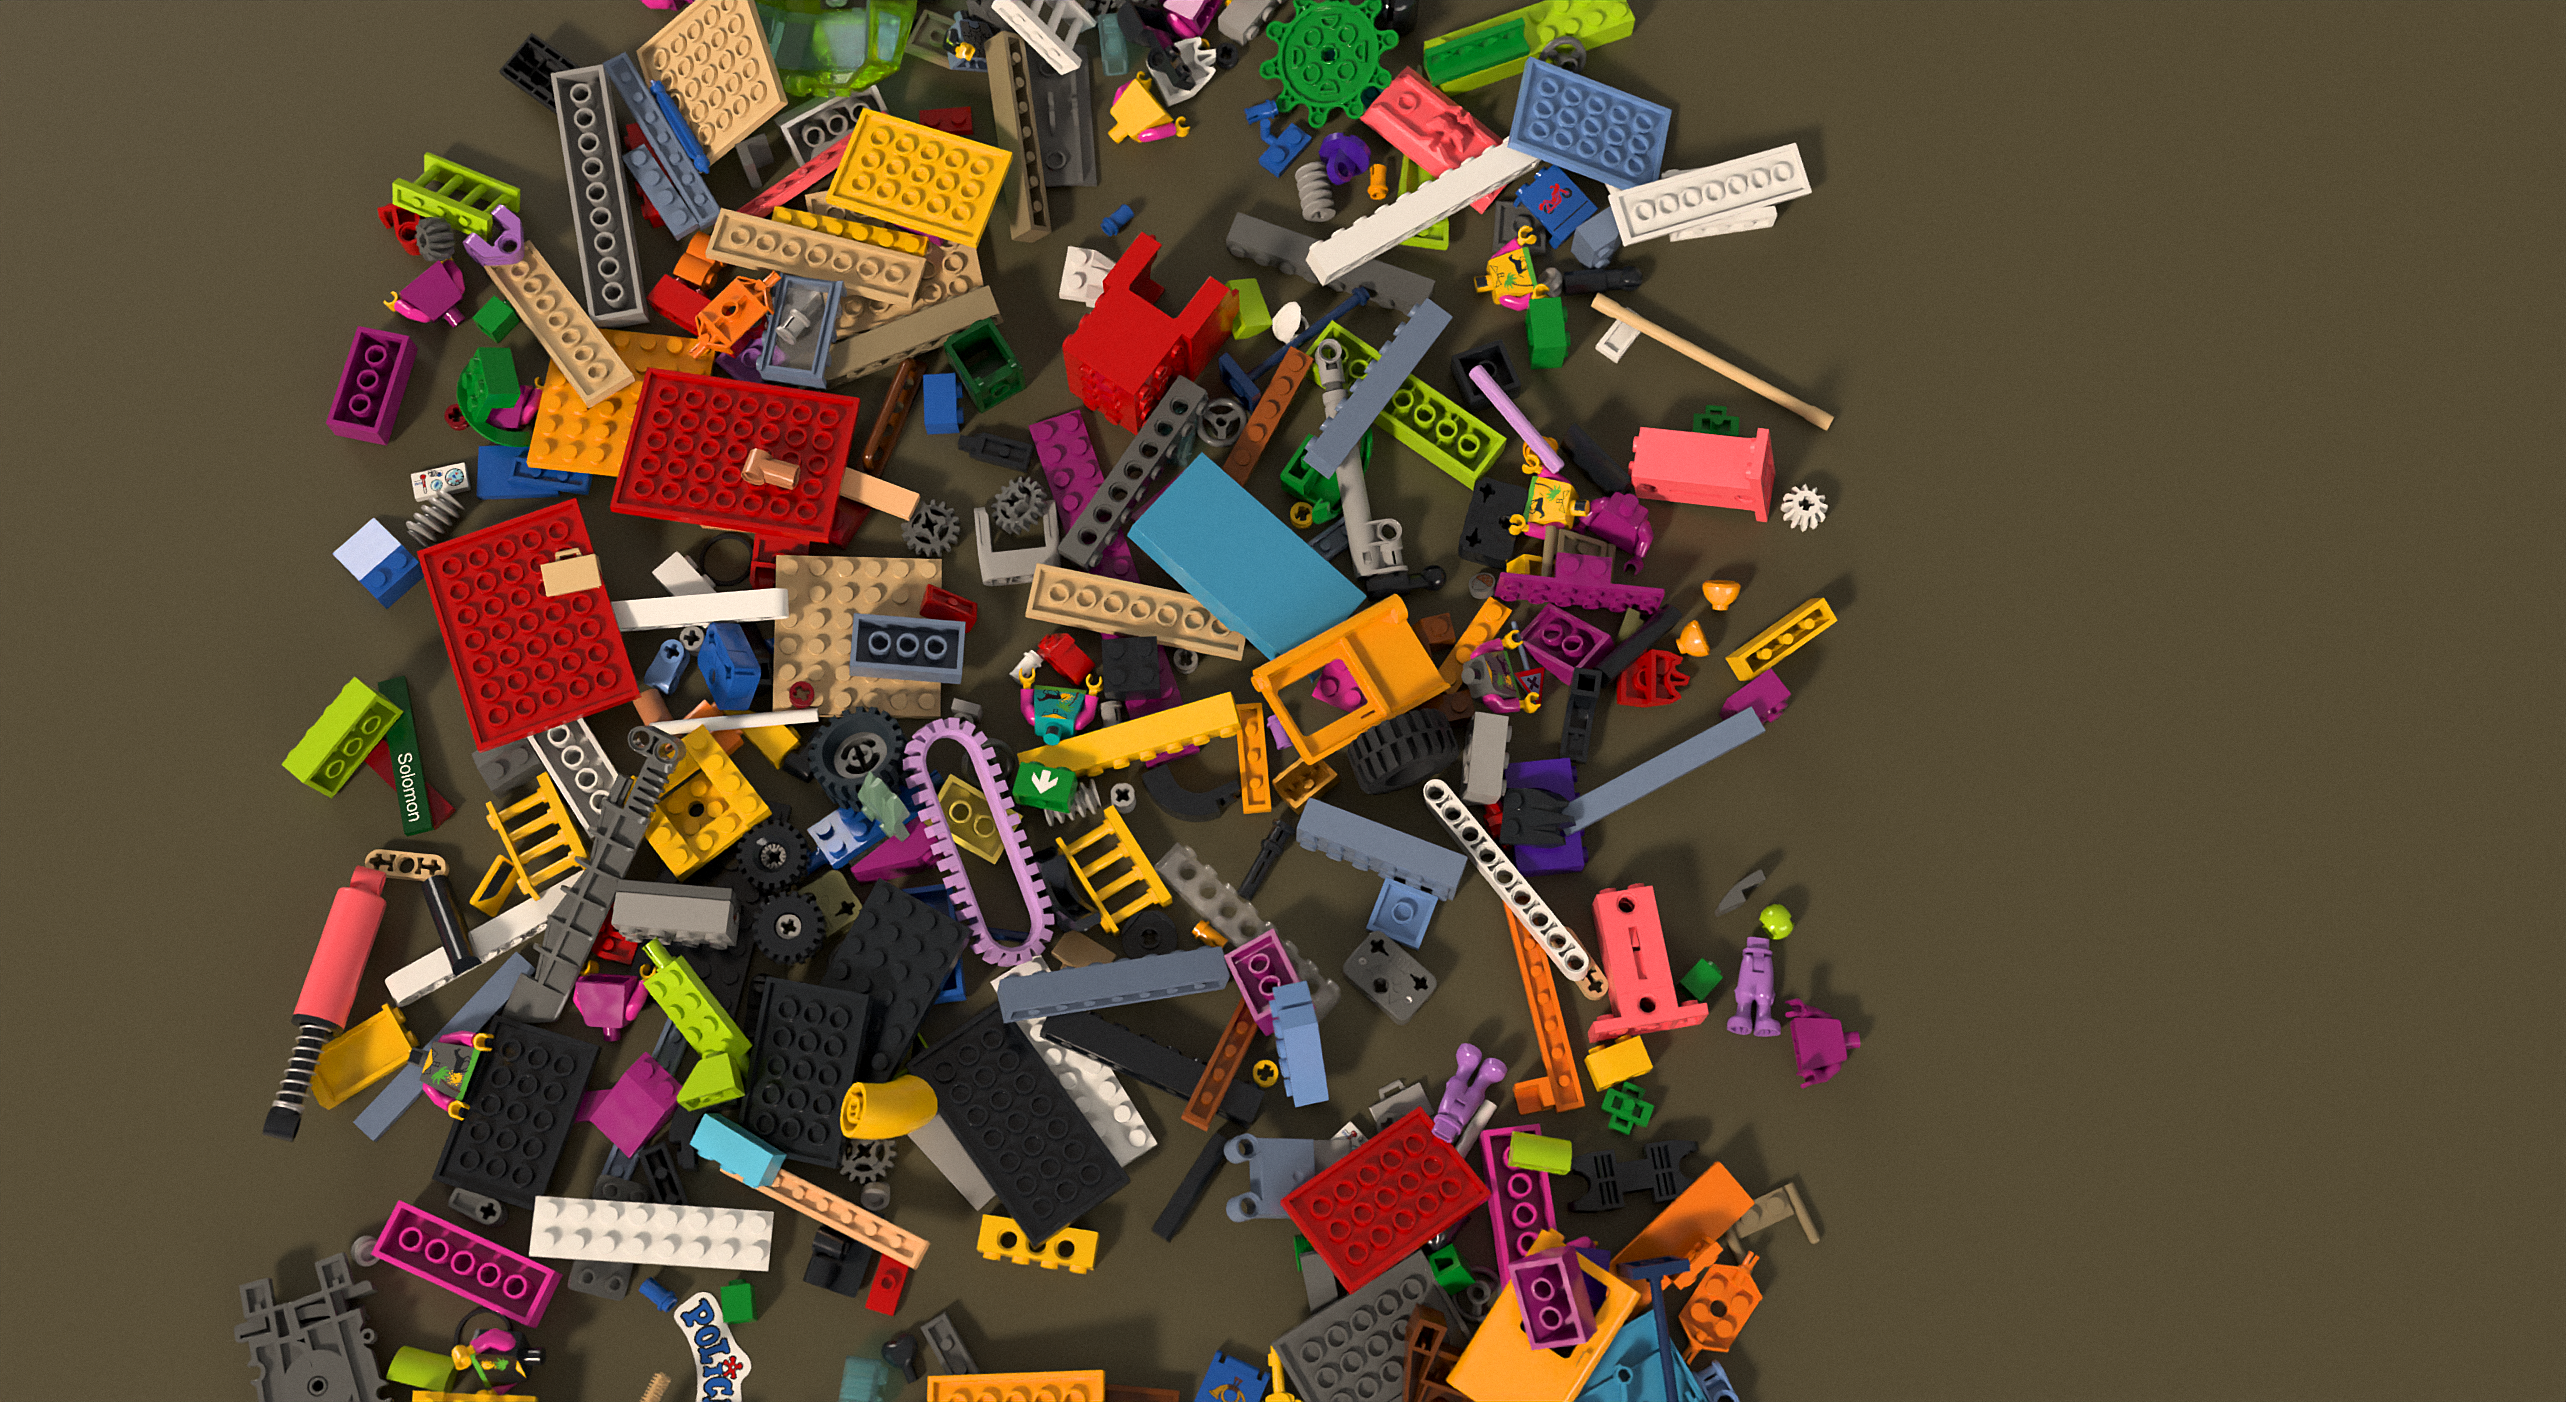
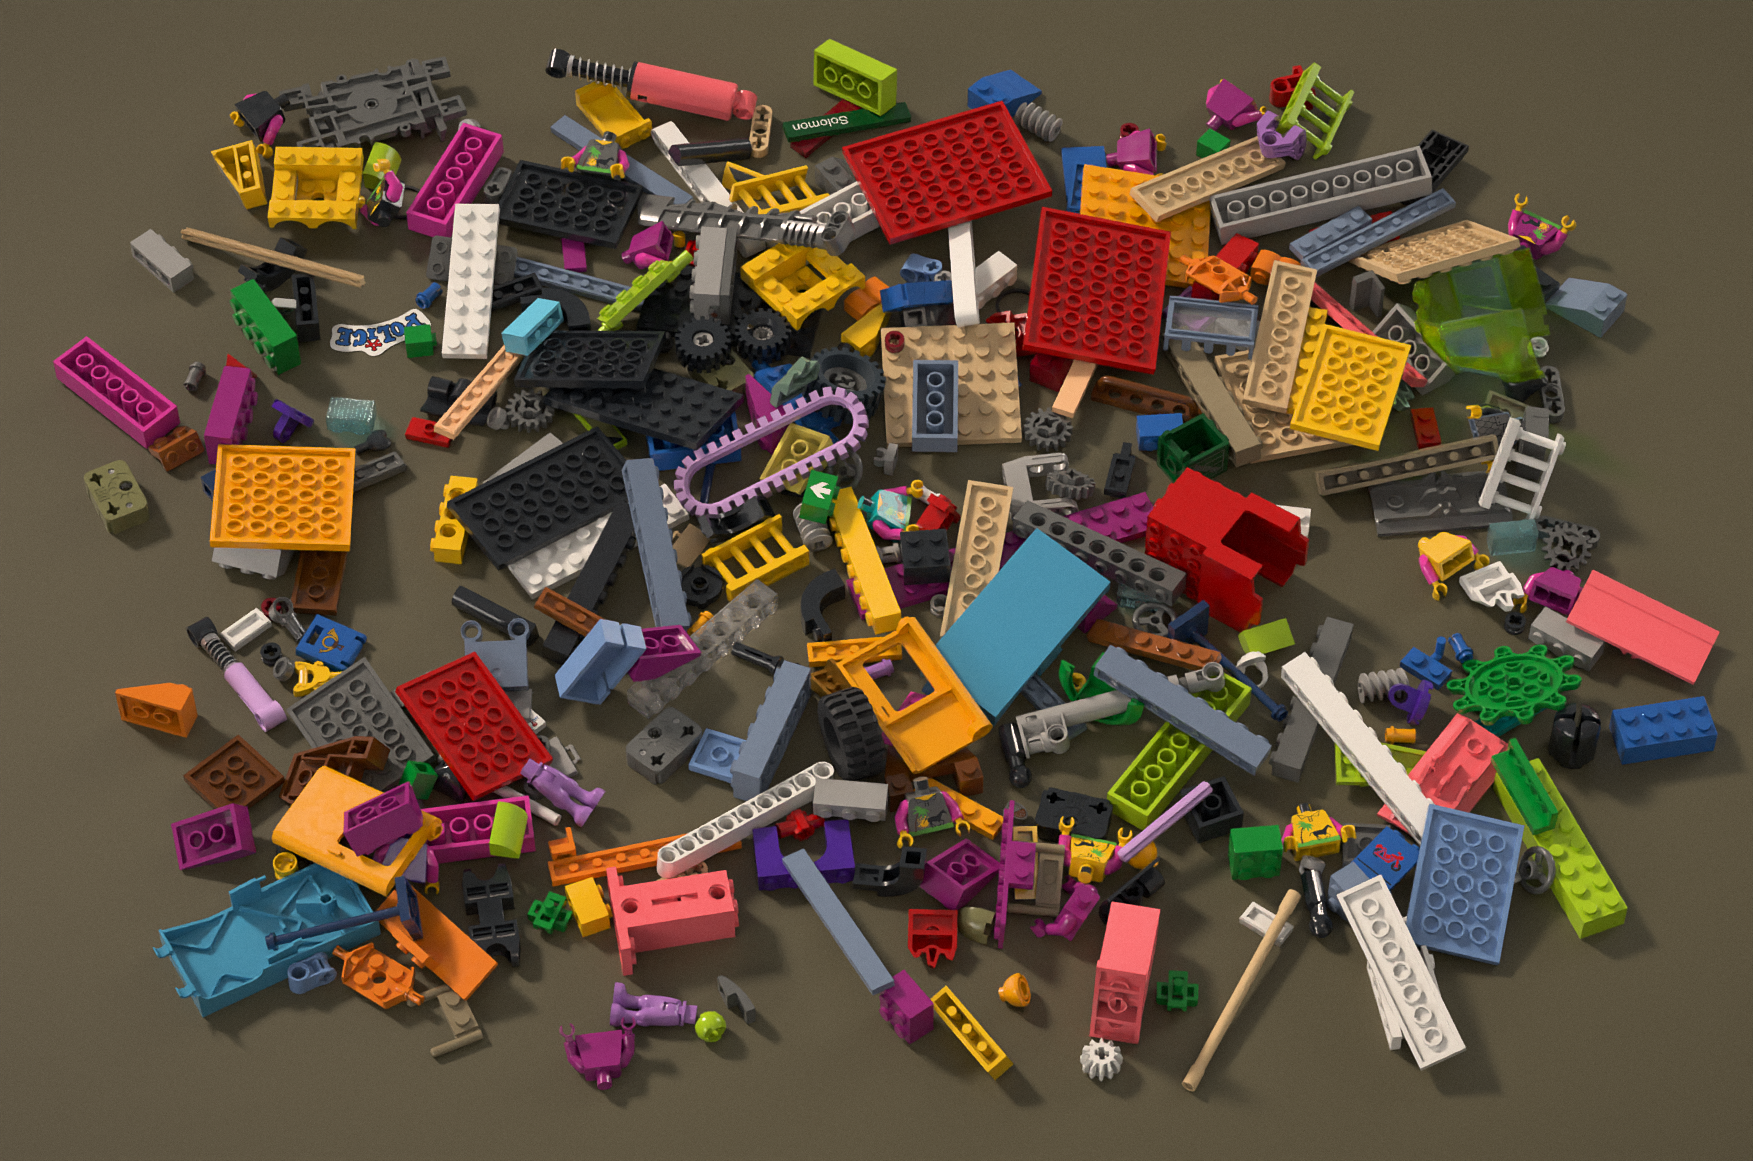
camera: 90 degrees right, 20 degrees down
(372, 385) = (1148, 75): magenta brick -> none
(435, 239) = (1273, 97): dark grey gear -> none
(450, 479) = (1073, 127): white tile -> none
(487, 384) = (1140, 133): green piece -> none
(571, 574) = (987, 193): tan piece -> none
(638, 1105) = (574, 272): magenta slope -> none
(653, 709) = (881, 265): nougat brick -> none
(679, 126) = (1391, 241): blue wheel -> none
(712, 1082) = (581, 300): lime slope -> none
(740, 721) = (873, 307): white piece -> none
(762, 468) = (1079, 301): nougat piece -> none
(793, 326) = (1208, 313): light grey bush -> none
(887, 1108) = (556, 405): yellow brick -> none
(945, 605) = (977, 442): red slope -> none
(1120, 217) = (1341, 546): blue pin -> none
(1123, 790) = (817, 562): light grey bush -> none
(1150, 29) = (1525, 556): black plate -> none
(1529, 679) = (929, 843): piece -> none
(1534, 818) = (796, 833): black plate -> none
(1637, 643) = (958, 916): black brick -> none
(1693, 640) = (970, 971): light orange brick -> none
(1700, 980) = (657, 967): green brick -> none

